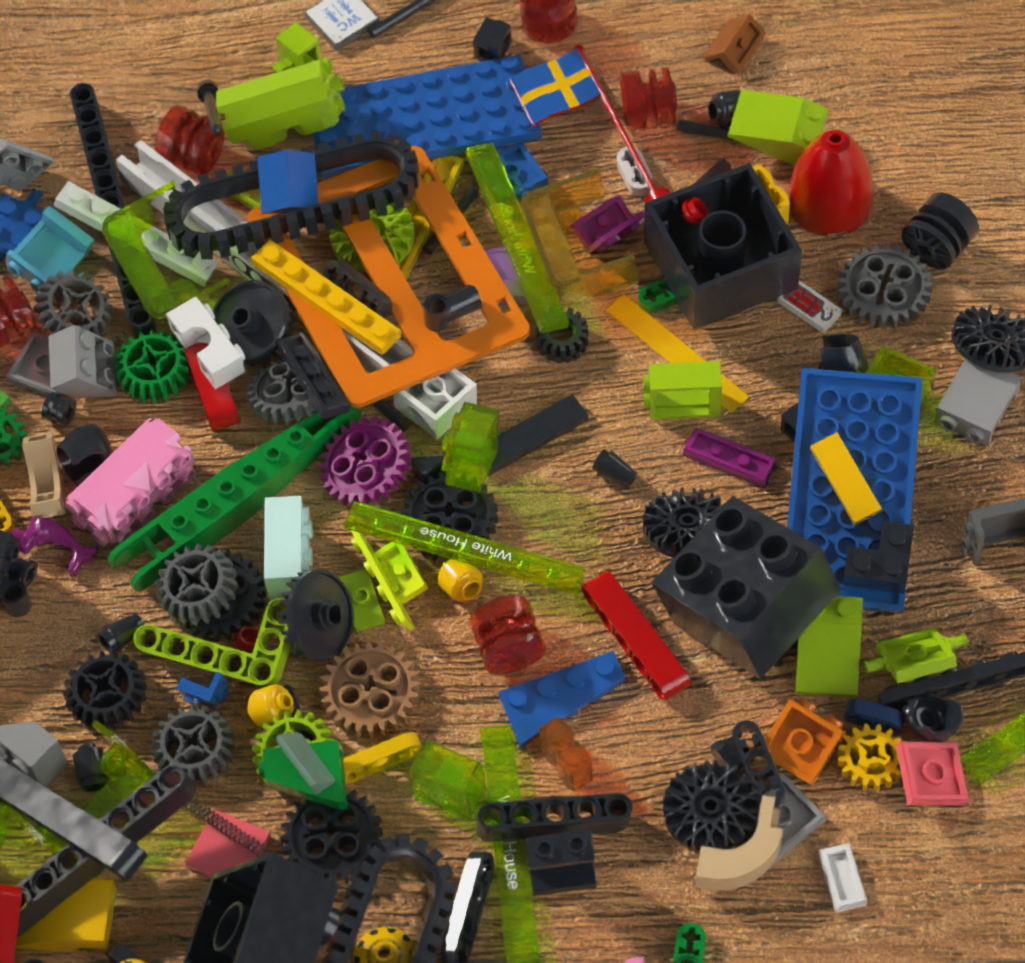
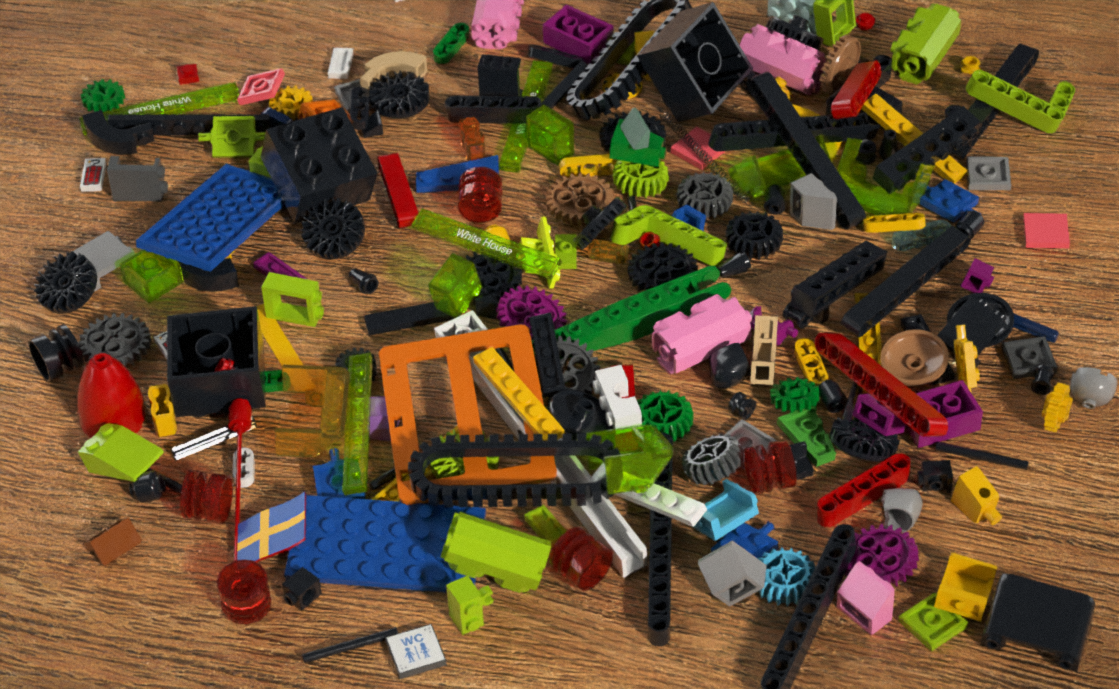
camera: 165 degrees left, 15 degrees down
(81, 363) = (718, 417): light grey slope -> none
(200, 569) = (673, 255): dark grey gear -> none
(207, 94) = (553, 607): piece -> none
(269, 702) = (647, 196): yellow head -> none
(285, 542) = (605, 270): light aqua brick -> none
(287, 181) = (517, 468): blue slope -> none
(368, 289) = (492, 400): black beam -> none
(450, 307) = (437, 361): black piece -> none
(604, 224) = (281, 410): magenta bracket -> none
(843, 353) = (177, 295): black piece -> none
(845, 478) = (220, 212): yellow tile -> none
(882, 568) = (225, 168): black brick -> none
(933, 717) = (242, 104): black hair -> none

